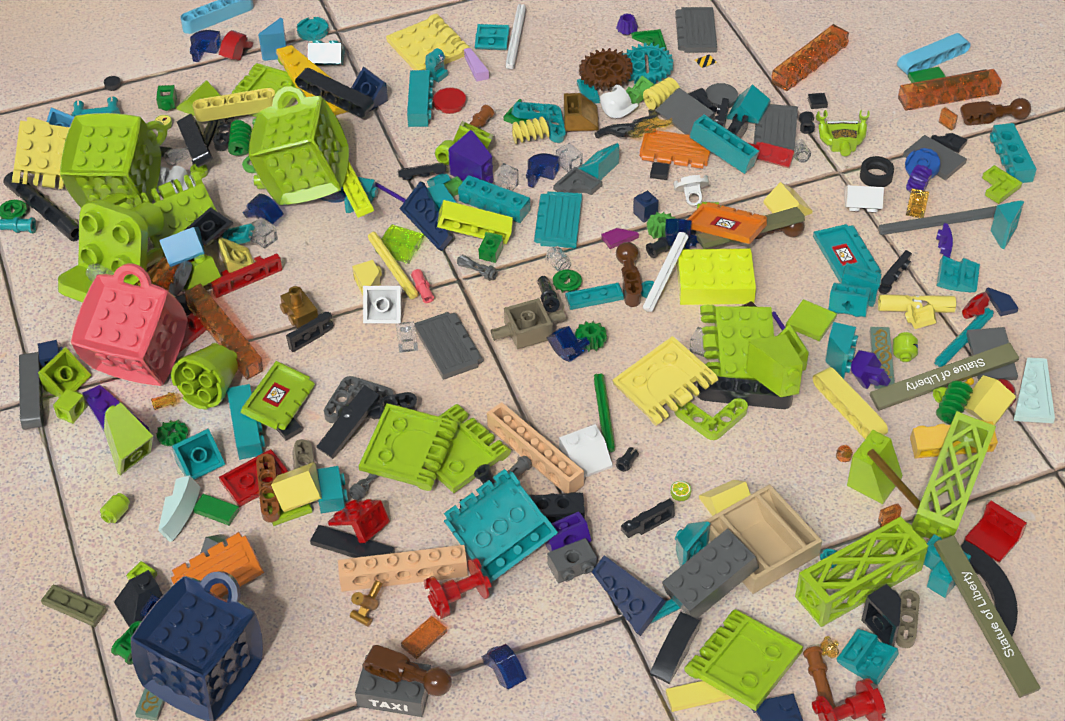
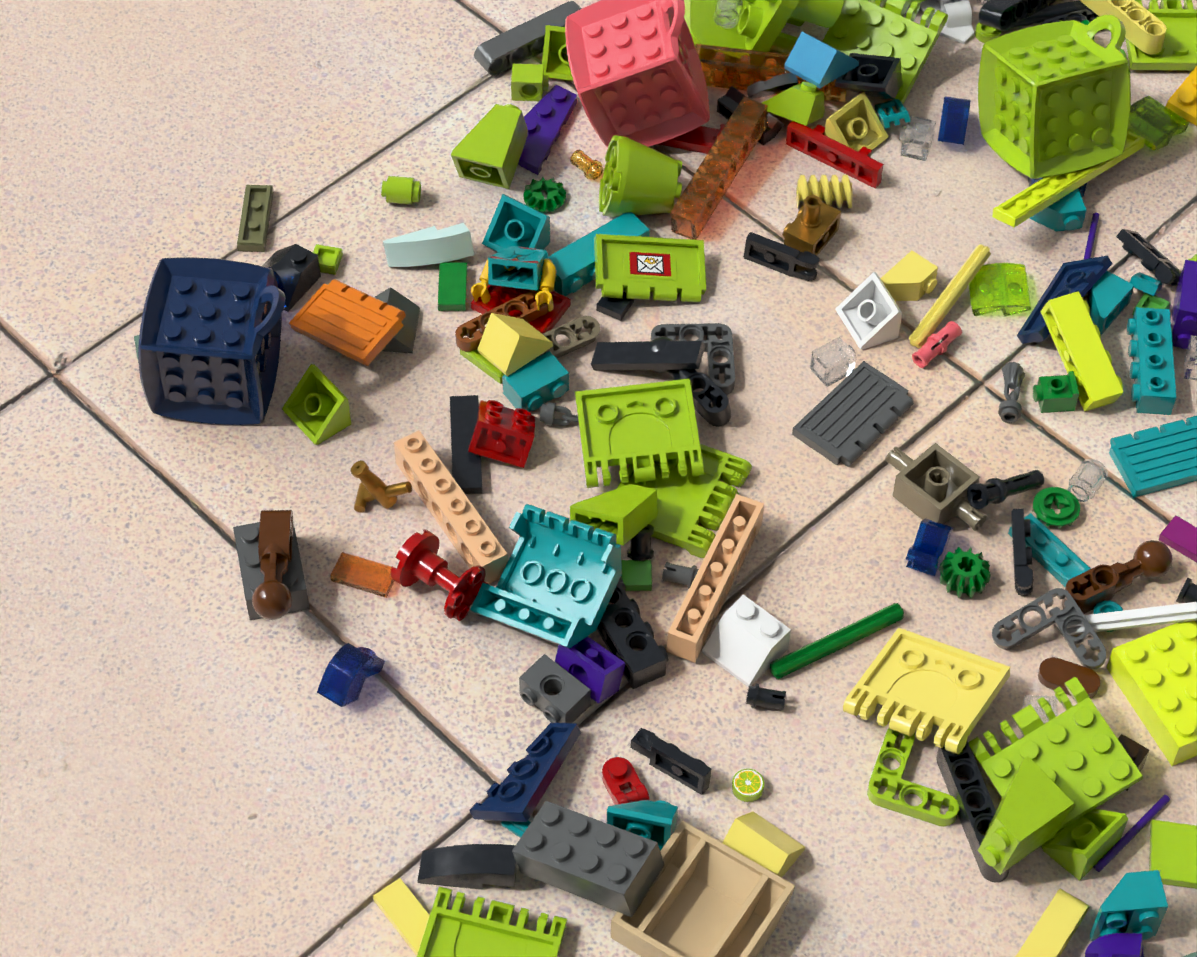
camera: 65 degrees right, 5 degrees up
(240, 459) = (518, 269): none -> teal torso
(269, 295) = (825, 190): none -> light yellow piece
(275, 615) = (318, 406): none -> lime slope
(469, 473) = (618, 511): none -> lime slope
(593, 305) = (1021, 554): none -> black hinge
(643, 551) = (619, 775): none -> red plate
(646, 306) = (1060, 618): none -> dark grey beam
(680, 321) = (1056, 671): none -> reddish brown tile

